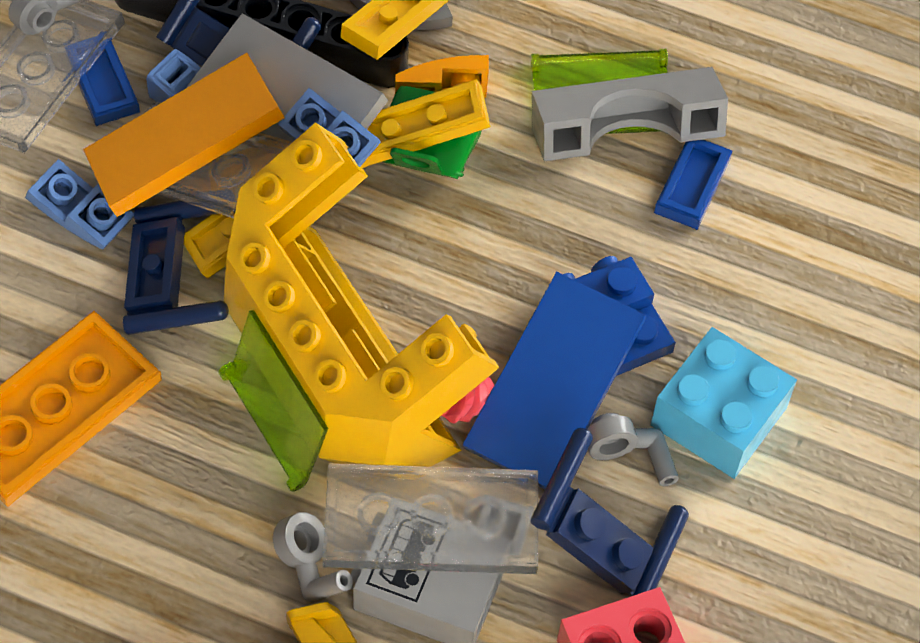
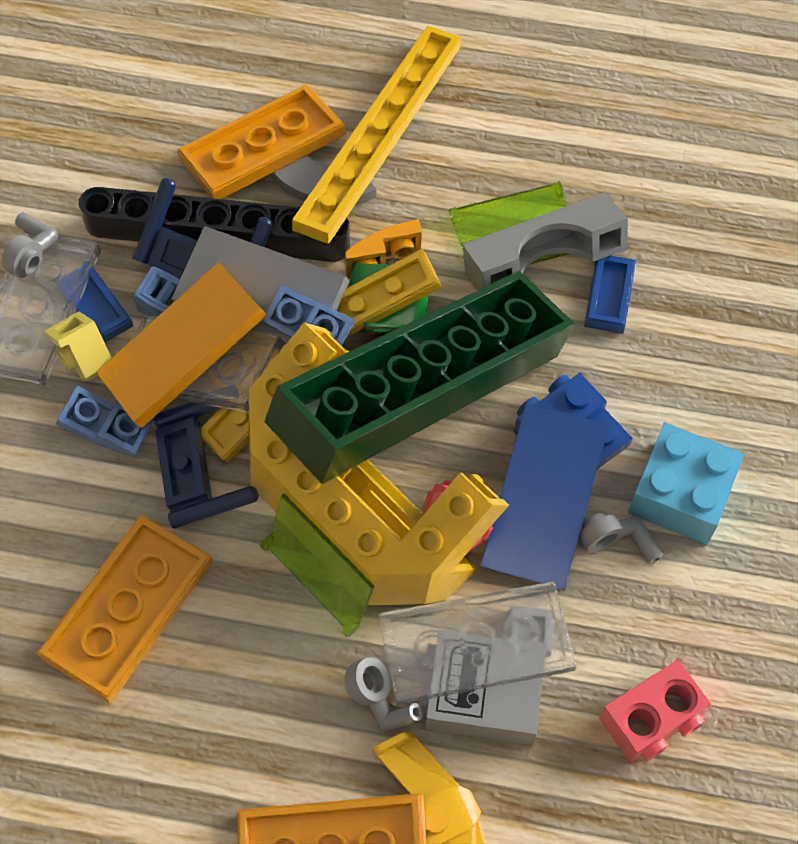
camera: 10 degrees left, 5 degrees up
(72, 116) = (79, 345): none -> light yellow brick
(437, 212) = (416, 375): none -> dark green brick
(596, 535) = (615, 625): dark blue plate -> none

